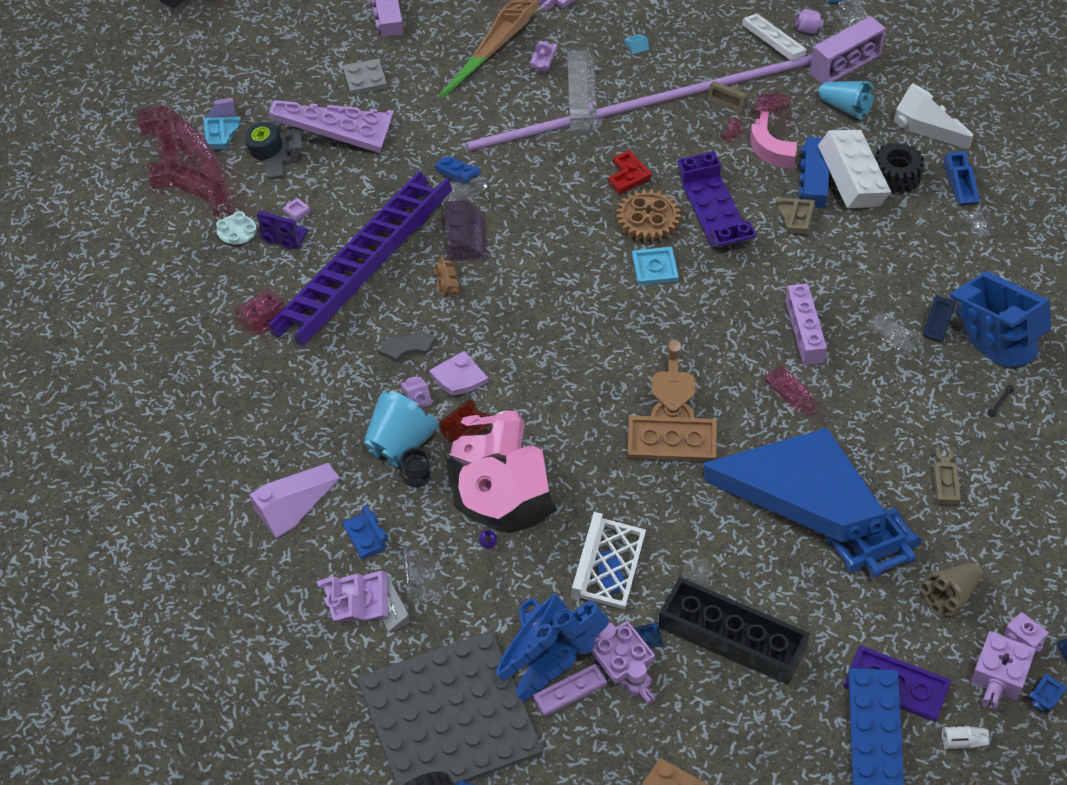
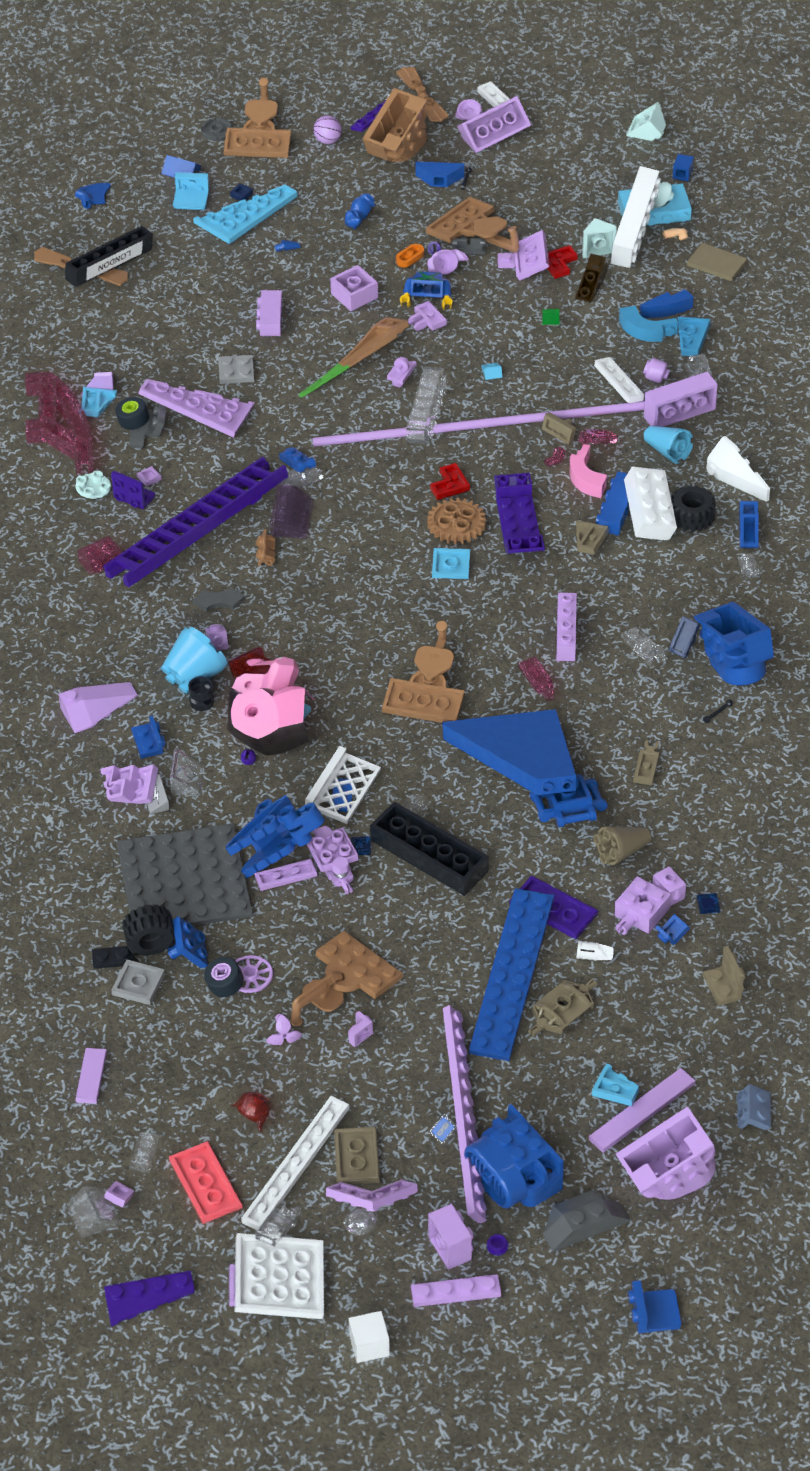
camera: 10 degrees right, 5 degrees down
(458, 375) = (256, 628): lavender plate -> none

